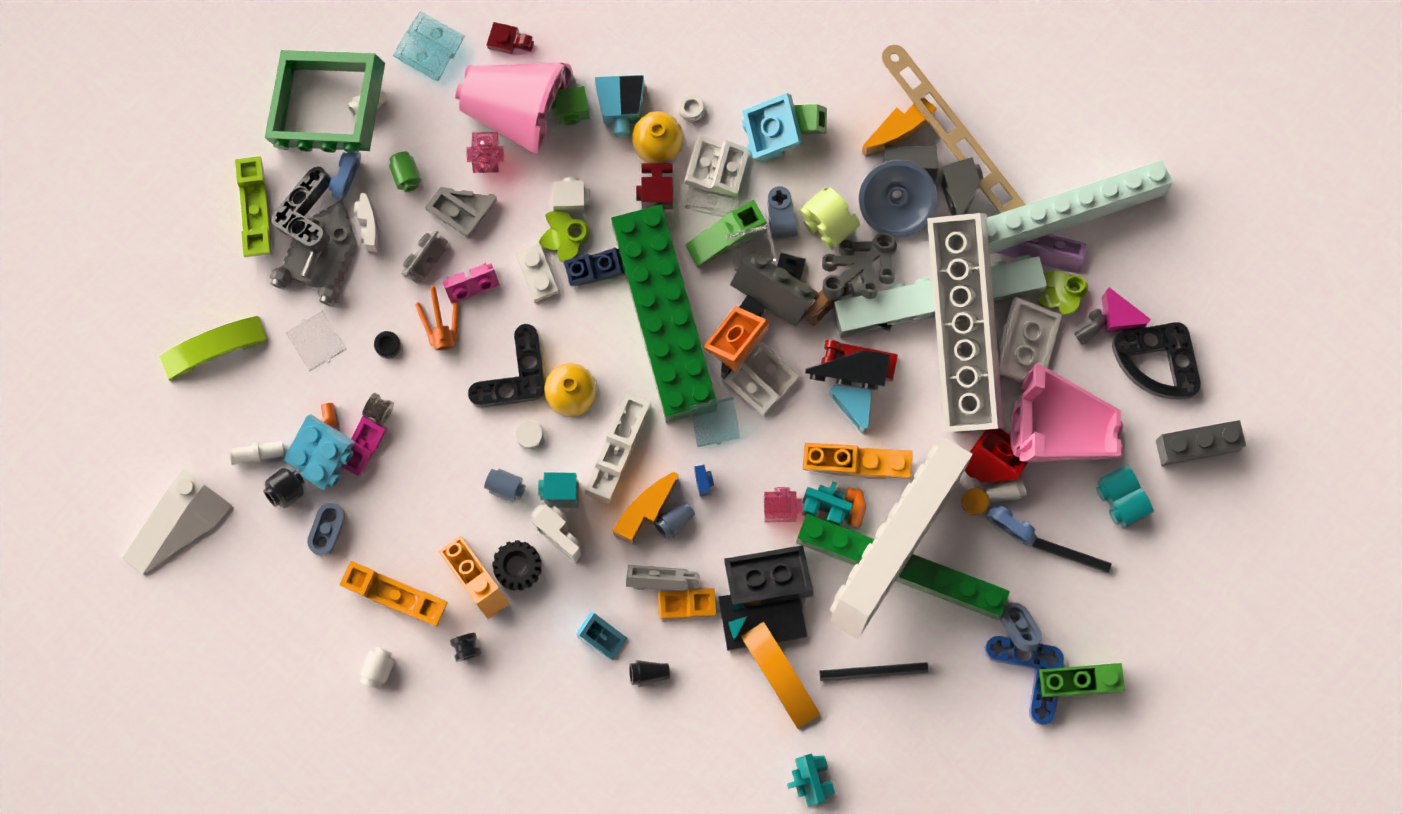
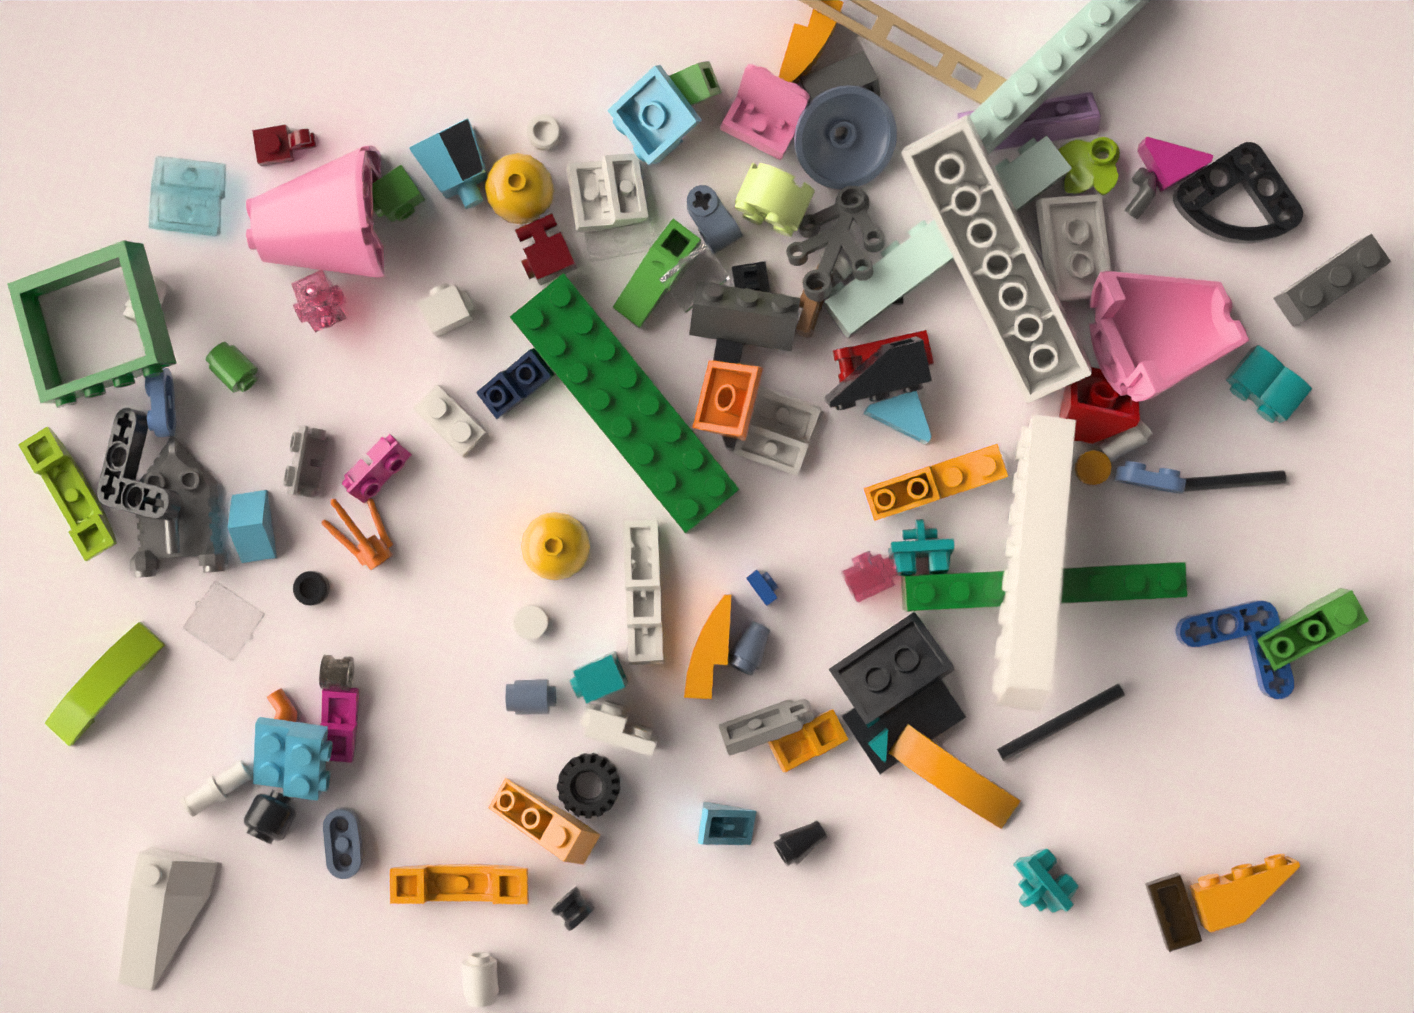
camera: 20 degrees left, 10 degrees up
(366, 217) = (211, 442): white slope -> none
(366, 285) = (252, 526): none -> medium azure slope
(460, 209) = (321, 384): light grey wing -> none
(518, 383) = (490, 565): black beam -> none
(560, 235) = (457, 363): lime plate -> none
(715, 421) = (746, 510): clear light blue piece -> none
(850, 157) = (765, 111): none -> bright pink bracket
(858, 508) = (961, 536): orange arm -> none
(960, 184) = (916, 91): dark grey slope -> none
(1024, 630) = (1215, 596): sand blue plate -> none

